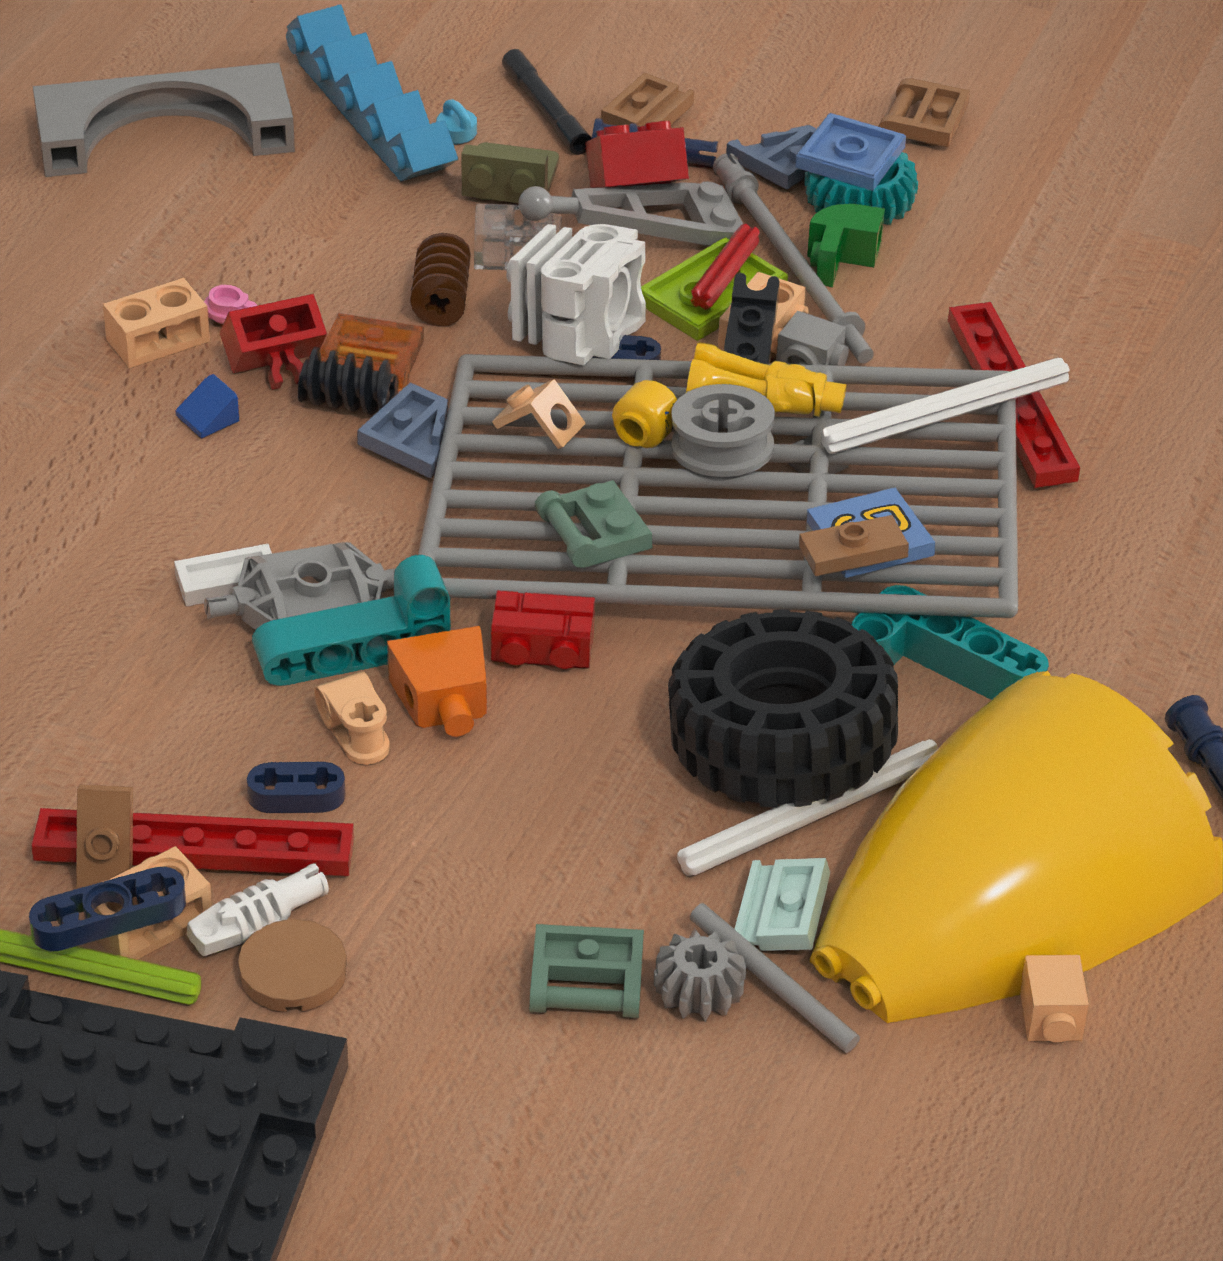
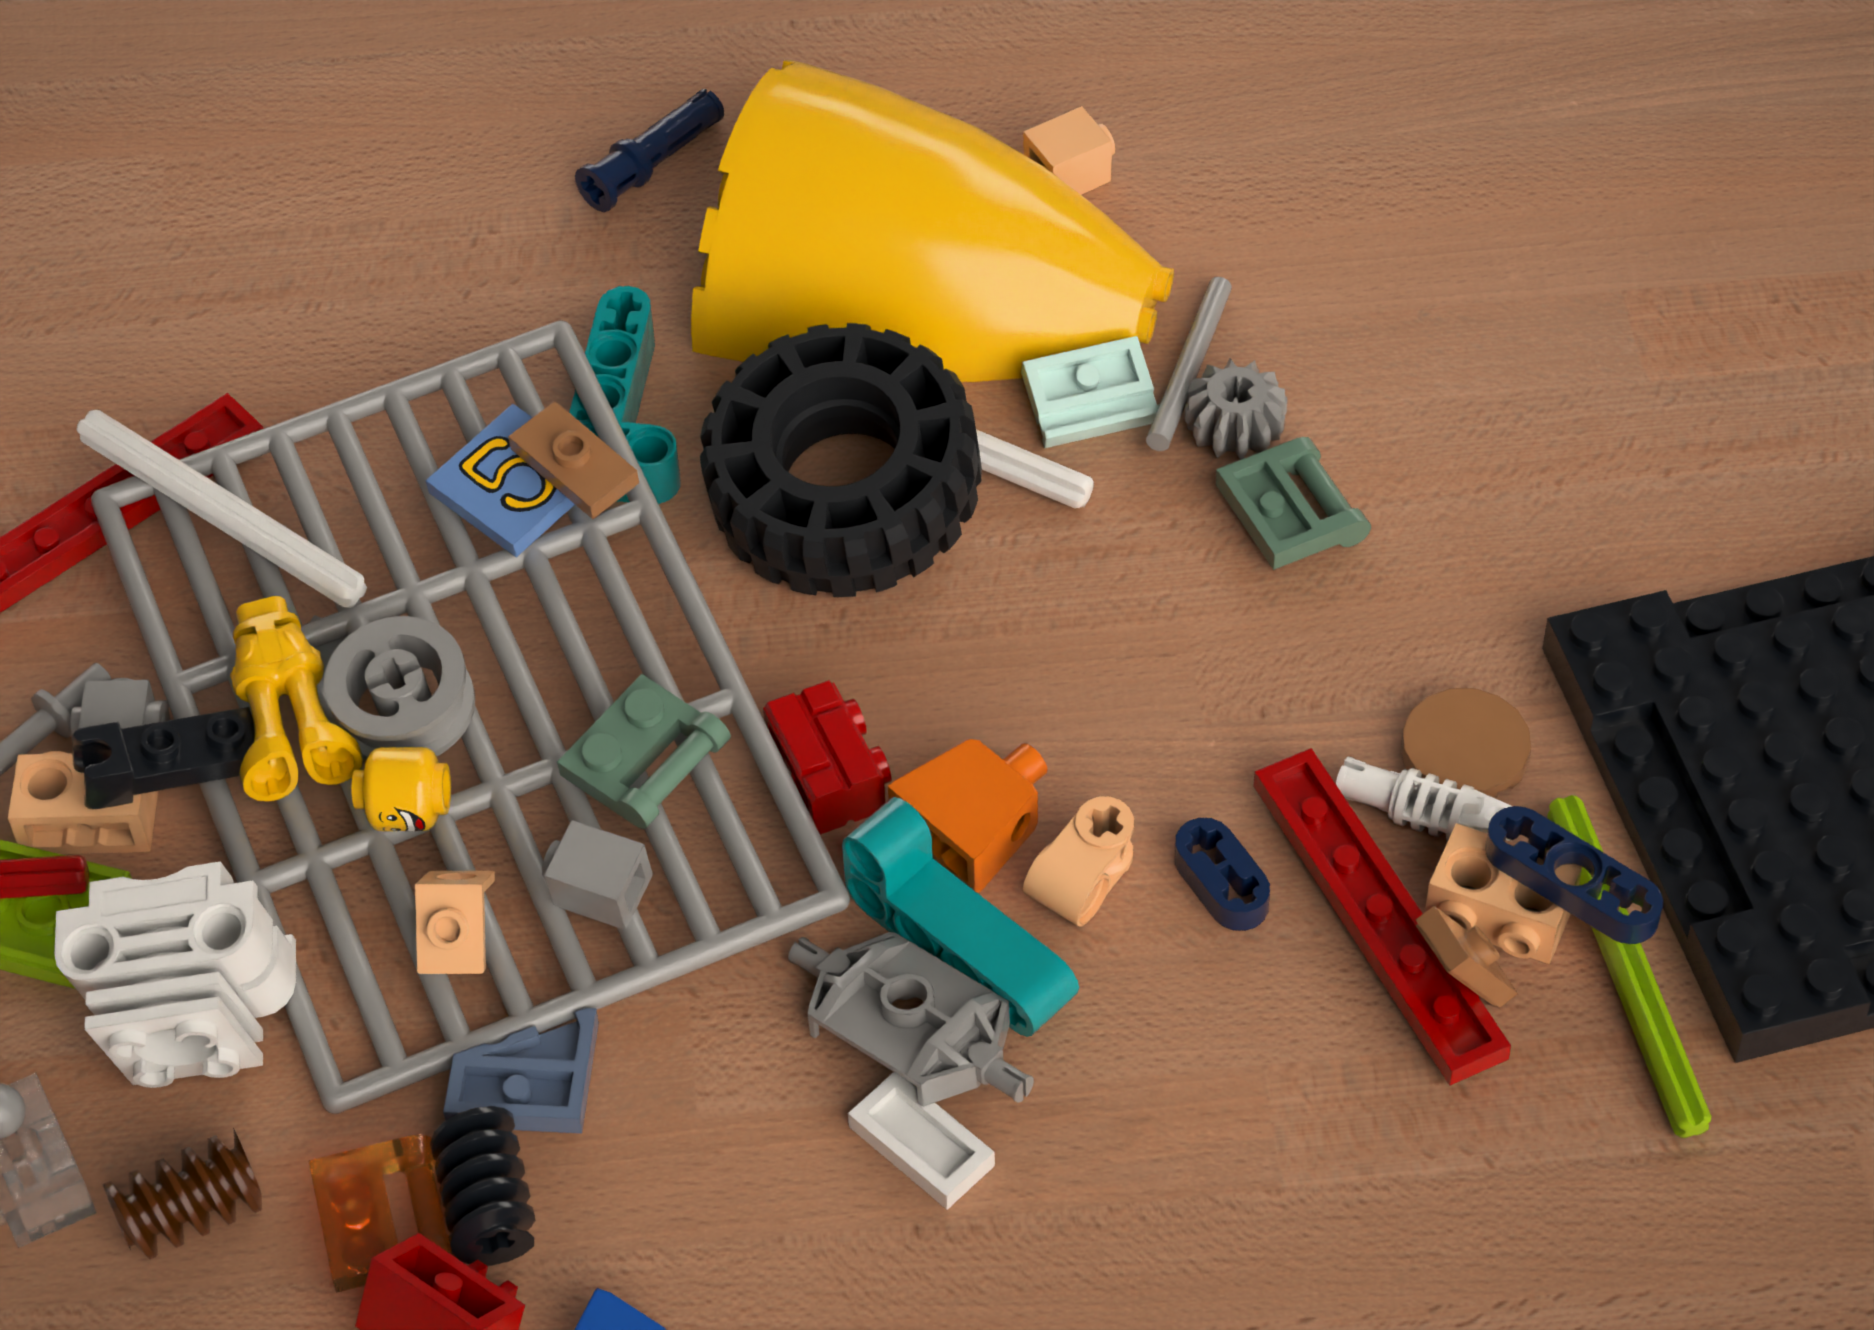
camera: 115 degrees left, 10 degrees up
(510, 469) = (597, 874): none -> light grey brick

